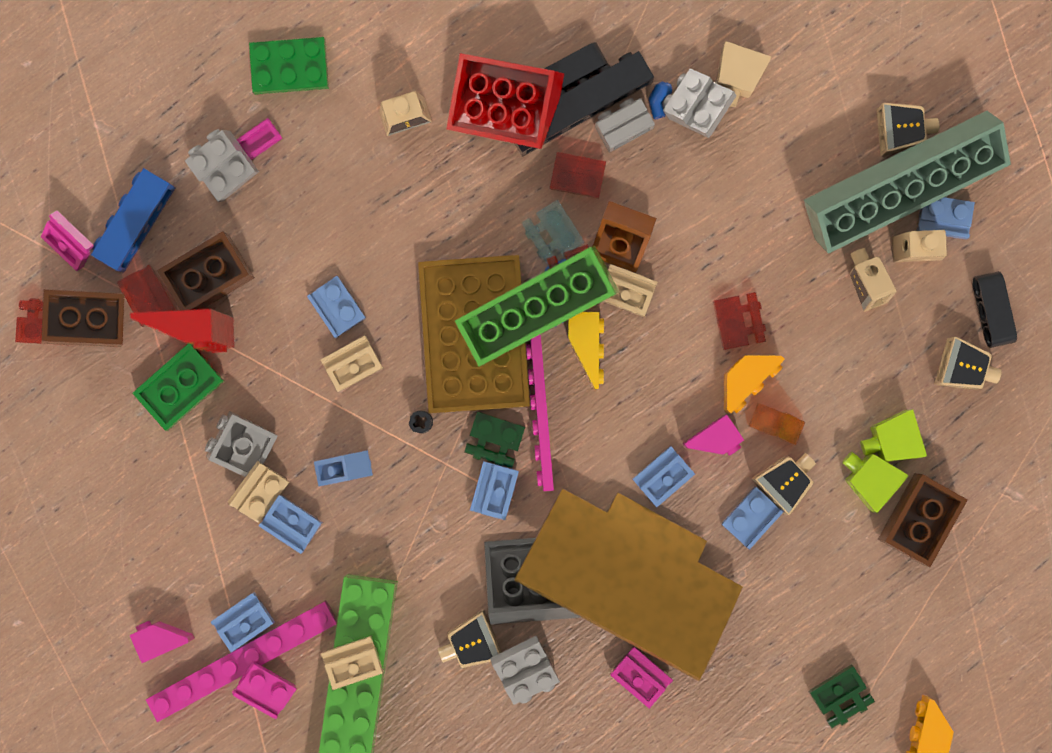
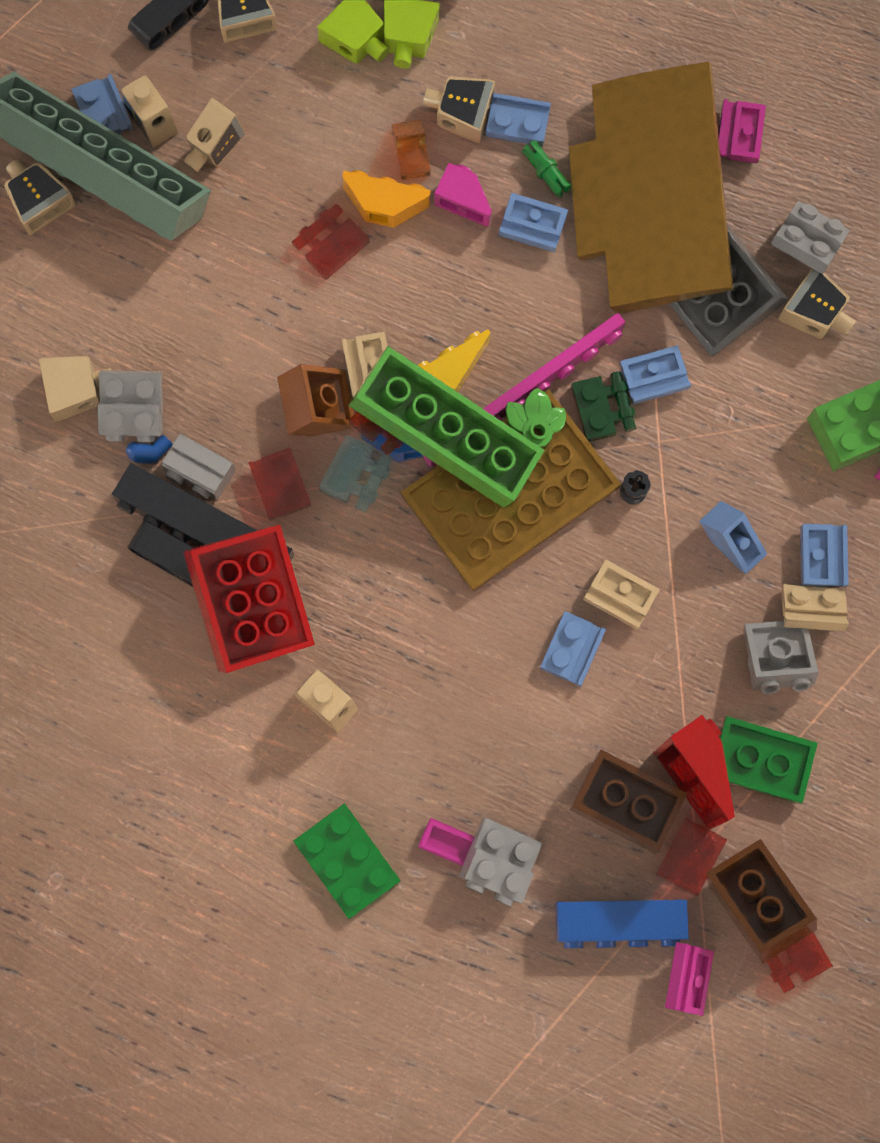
camera: 135 degrees left, 10 degrees down
(515, 382) = (536, 414): none -> bright green plate
(699, 513) = (546, 168): none -> green pin

